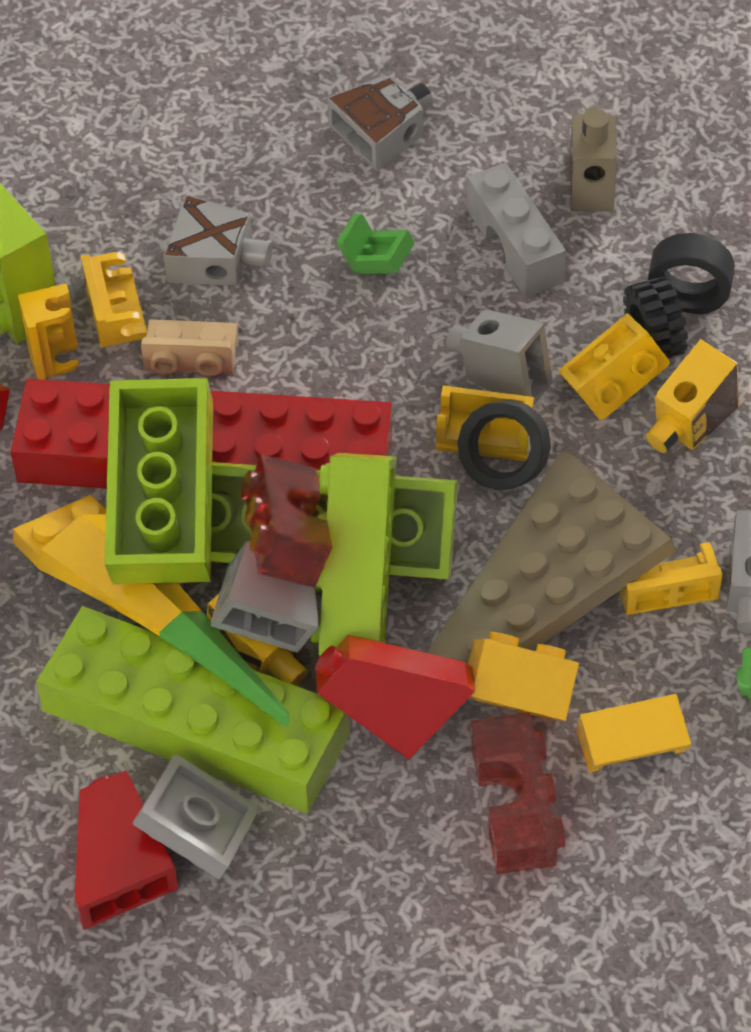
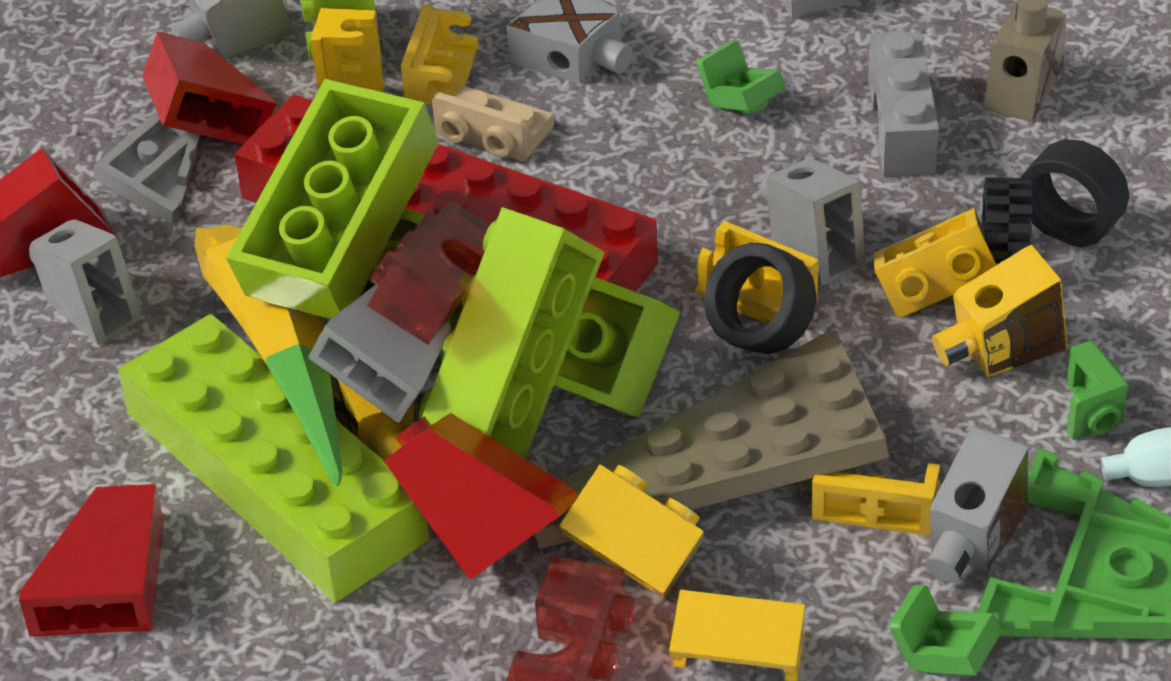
camera: 25 degrees right, 10 degrees down
(196, 816) = (198, 553): light grey plate -> none

